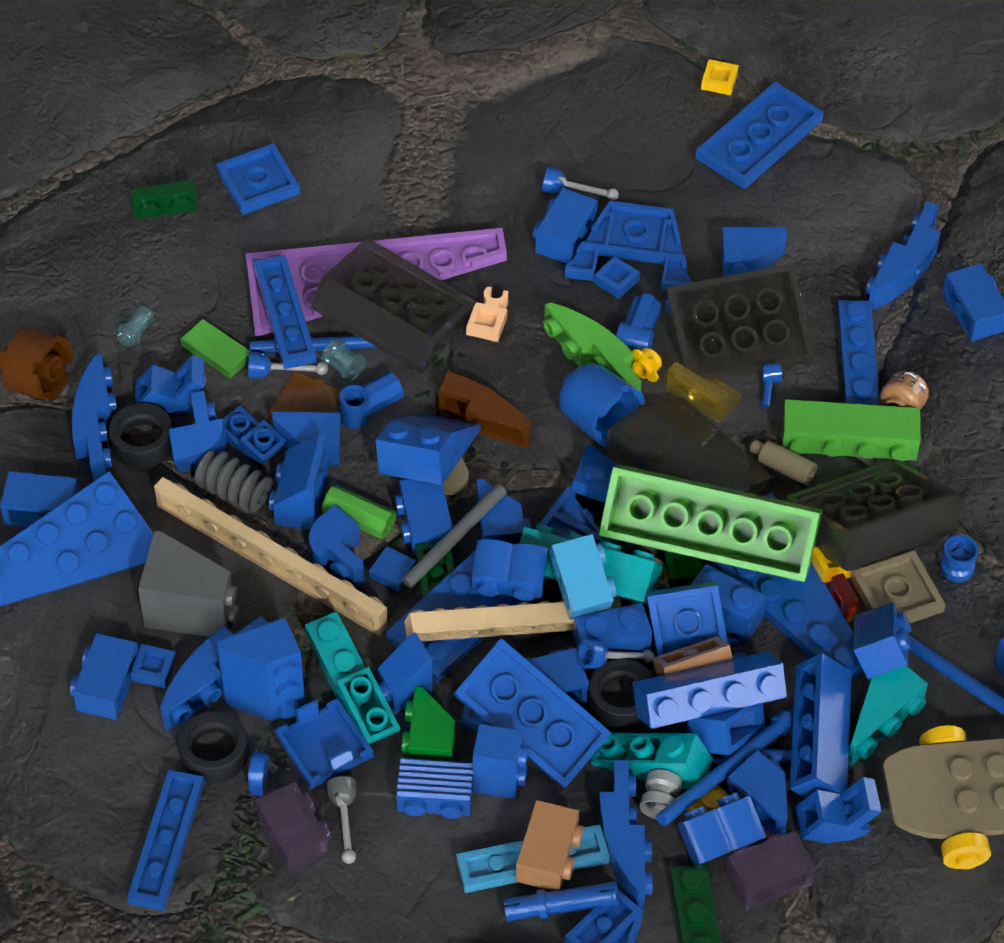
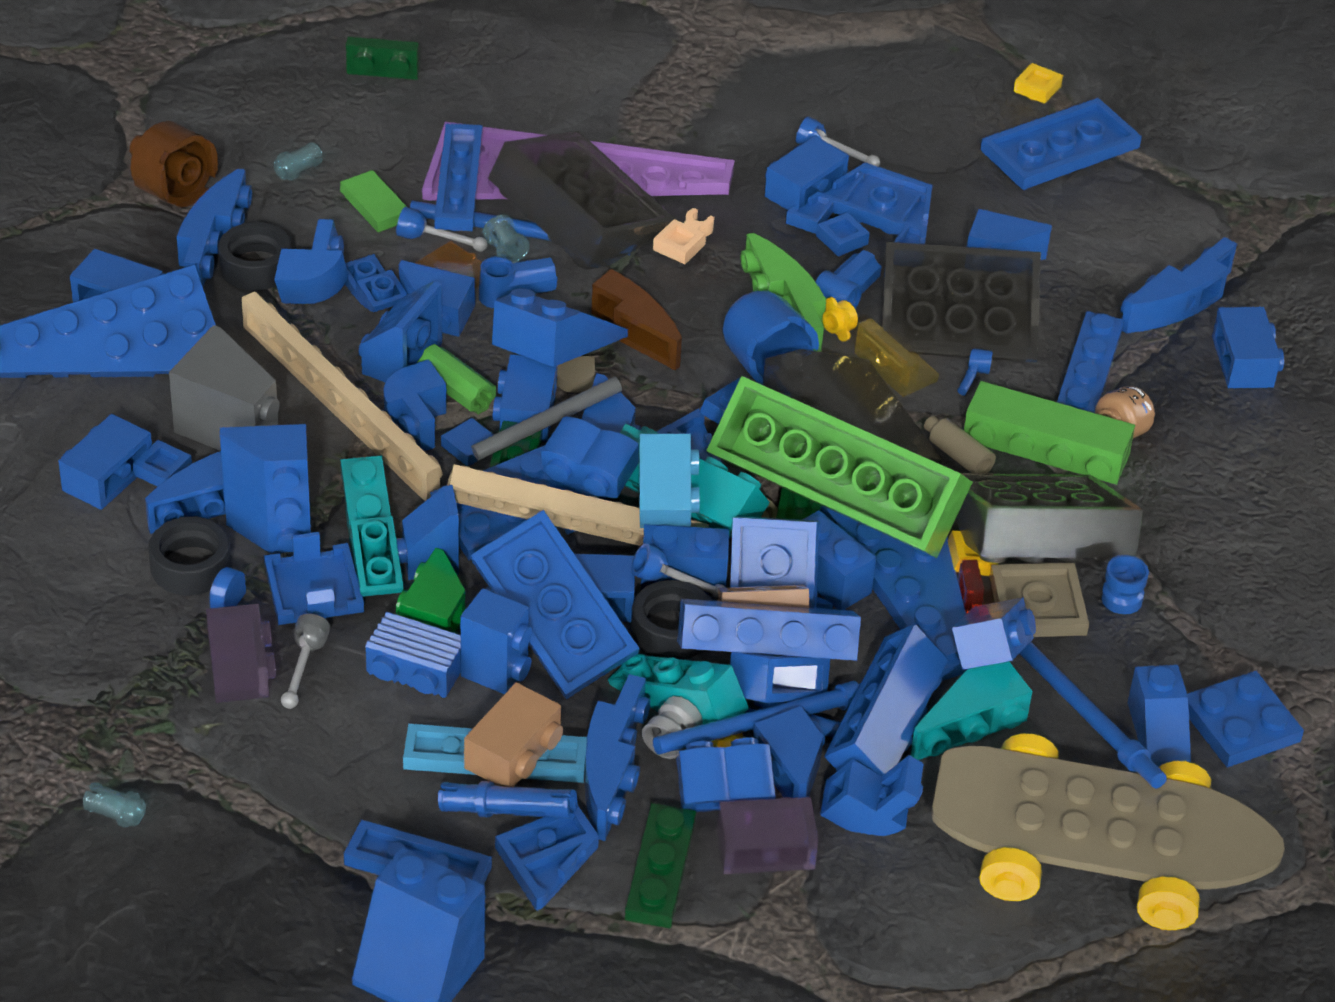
camera: 15 degrees right, 10 degrees down
(166, 840) = (93, 630): blue plate -> none
(171, 389) = (300, 216): blue brick -> none
(232, 482) = (330, 316): dark grey piece -> none
(258, 179) = (491, 63): blue plate -> none

